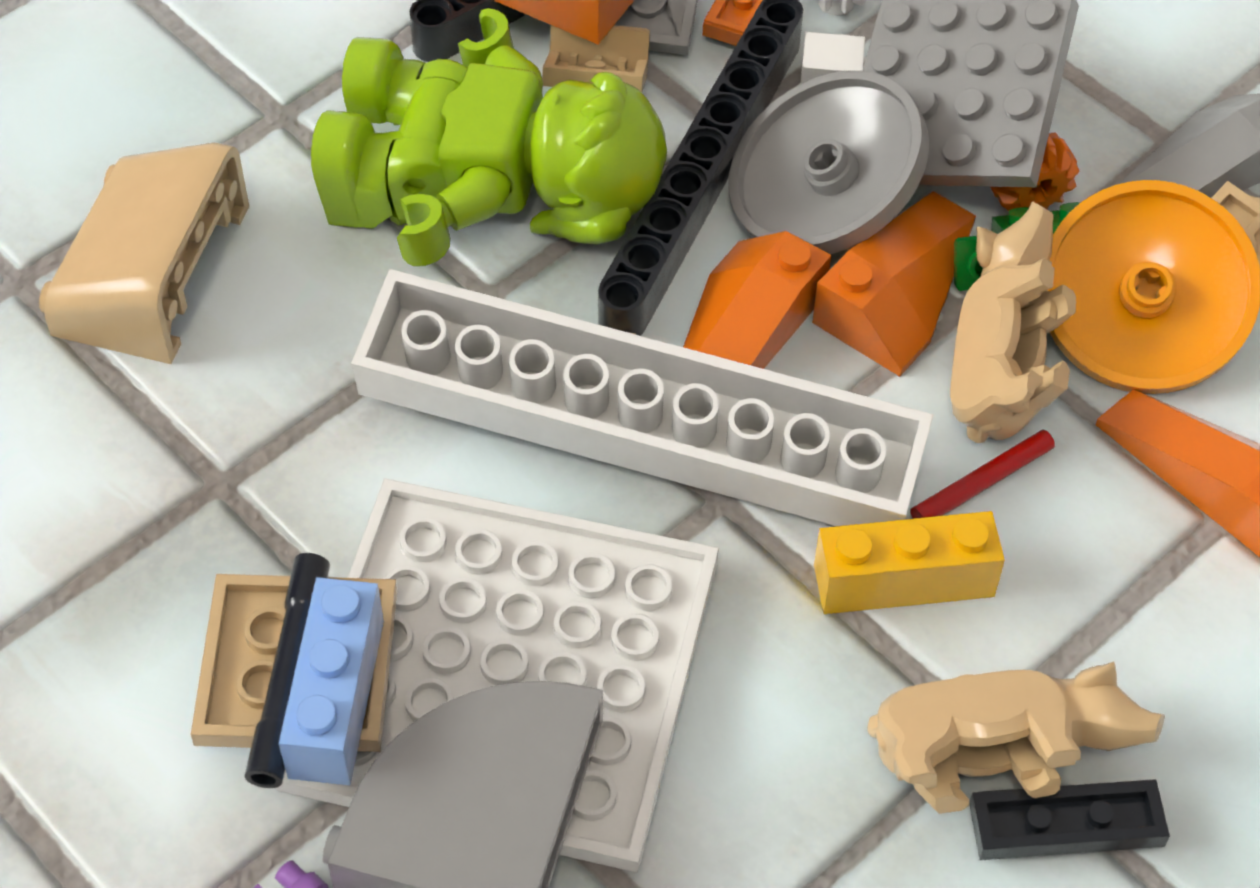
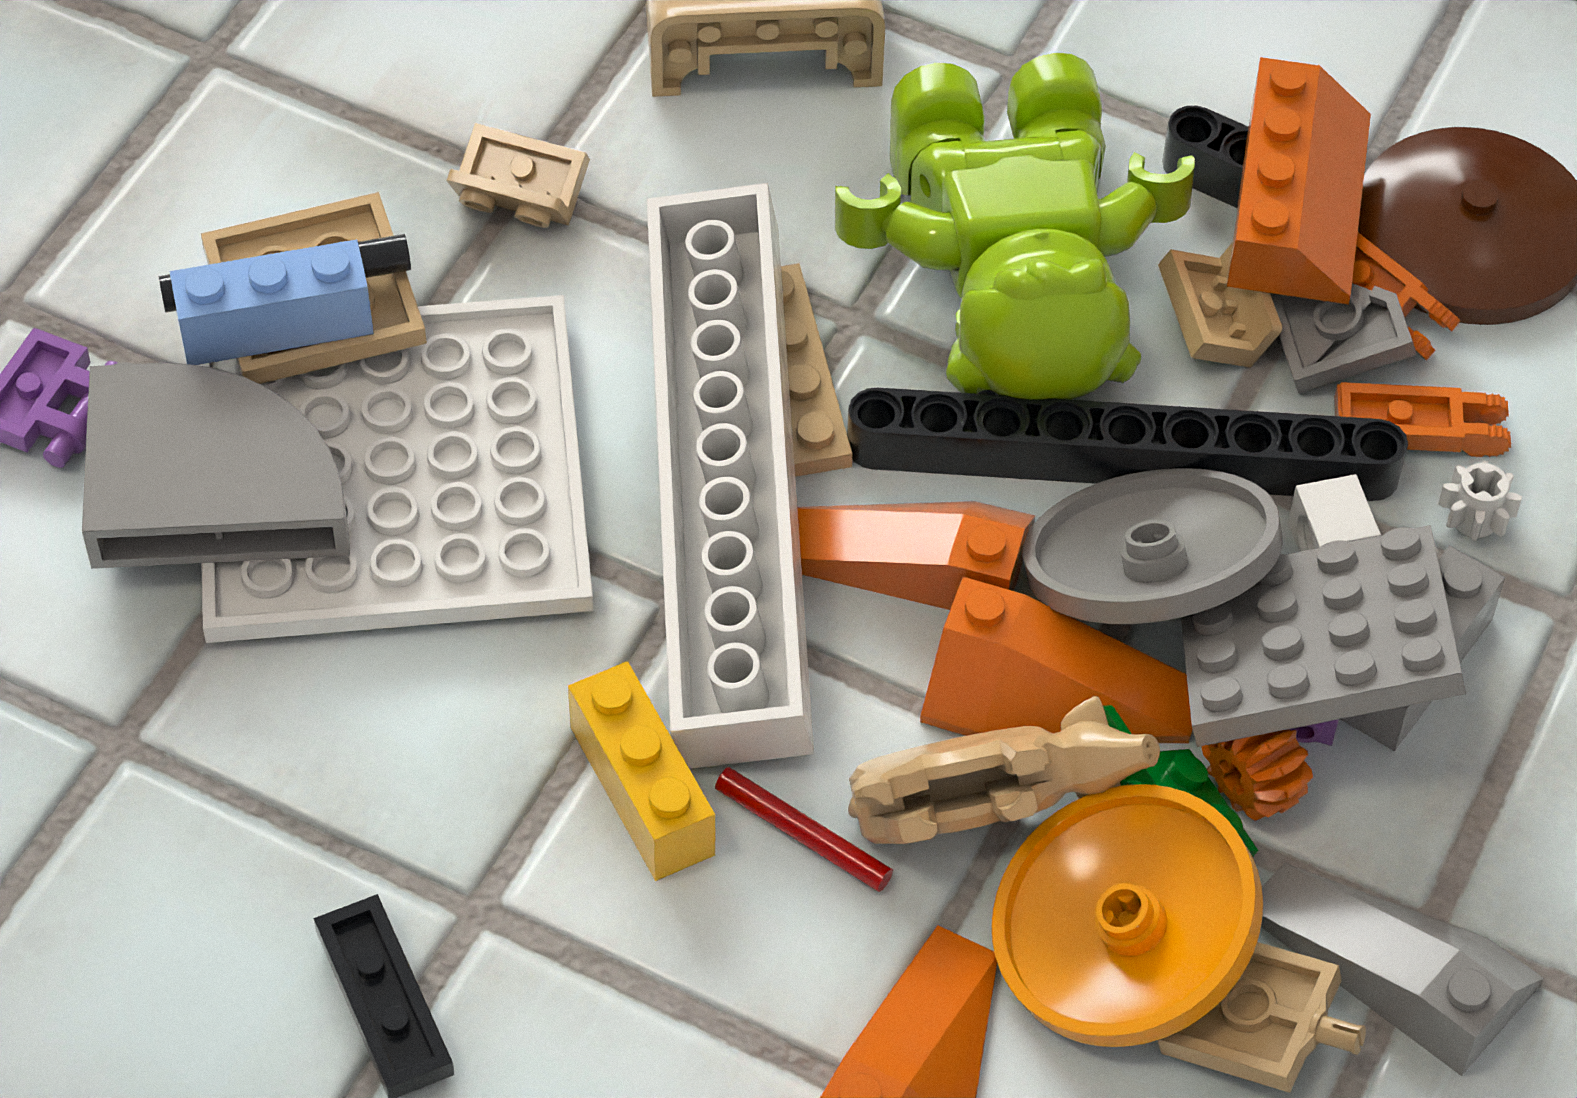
camera: 70 degrees right, 0 degrees up
(224, 474) = (519, 175): none -> tan bracket
(1004, 724) = (457, 892): tan animal -> none

